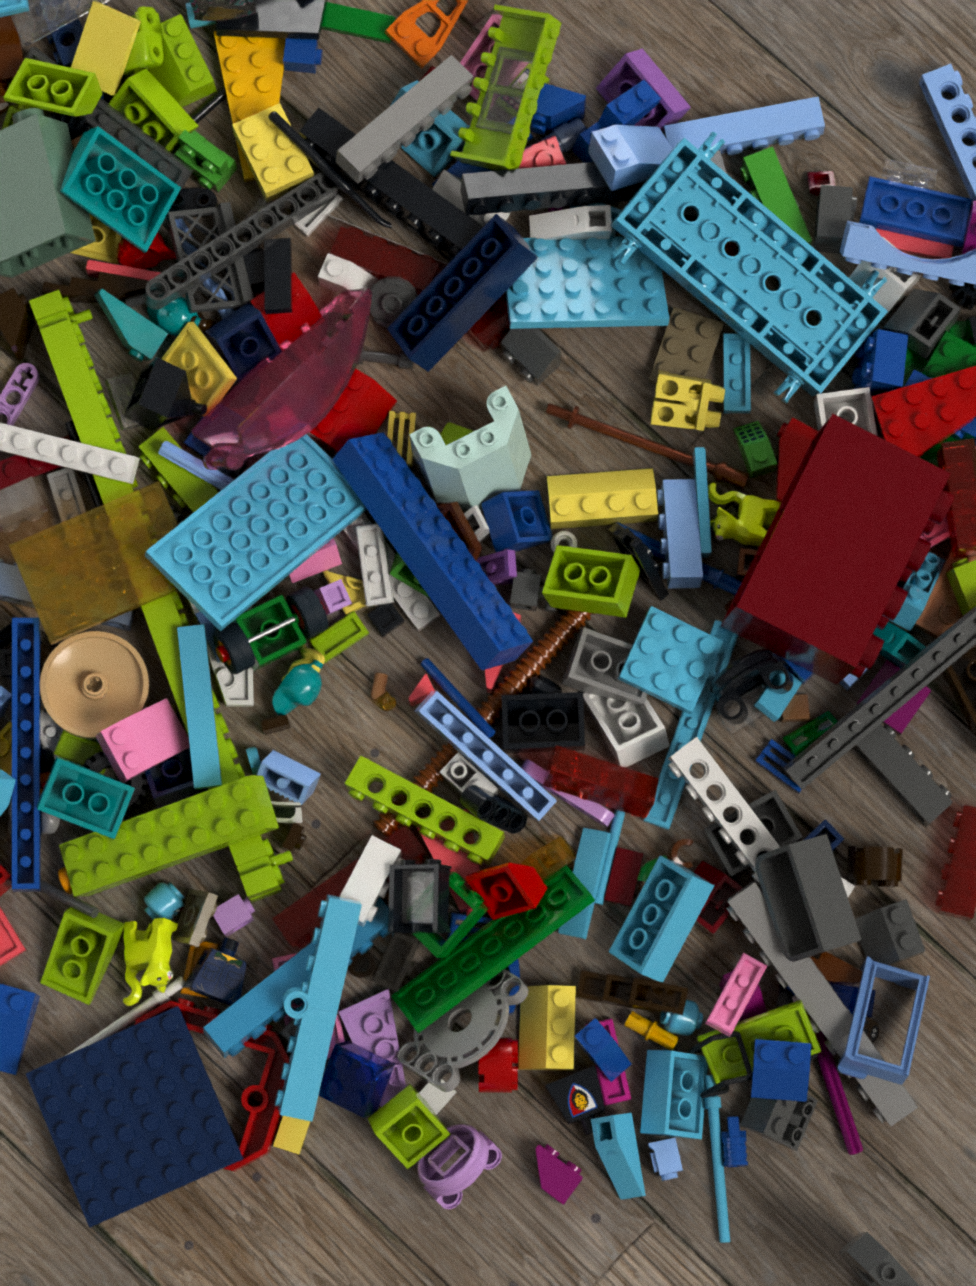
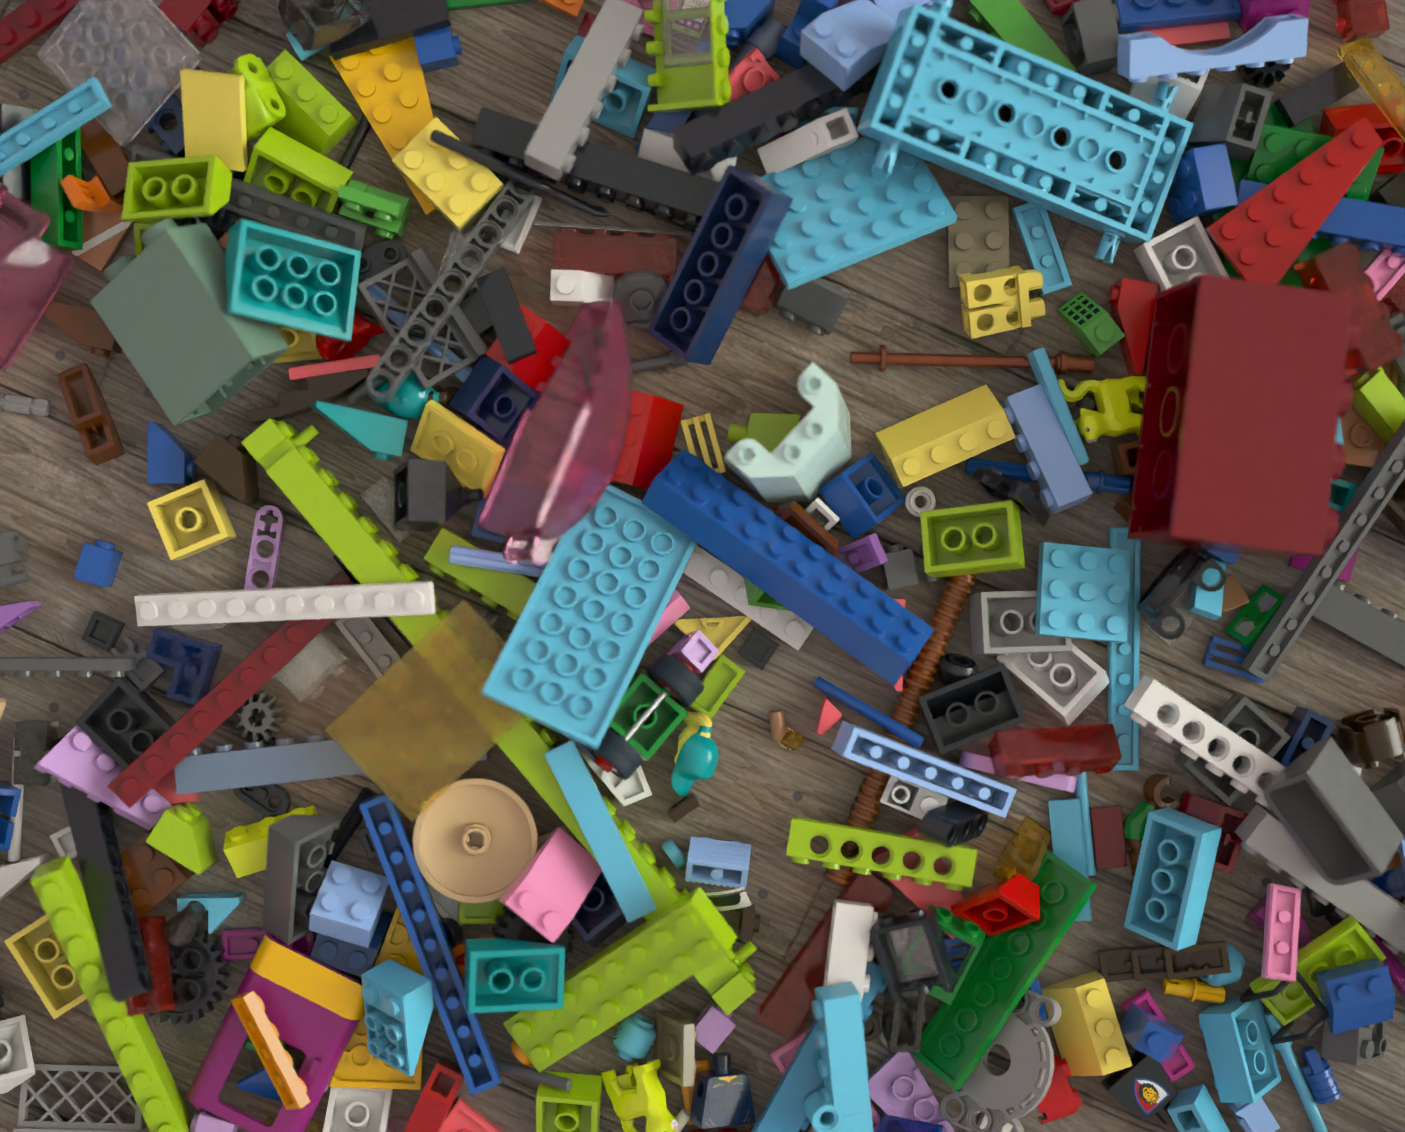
camera: 20 degrees left, 10 degrees up
(374, 565) = (727, 599): white tile -> none

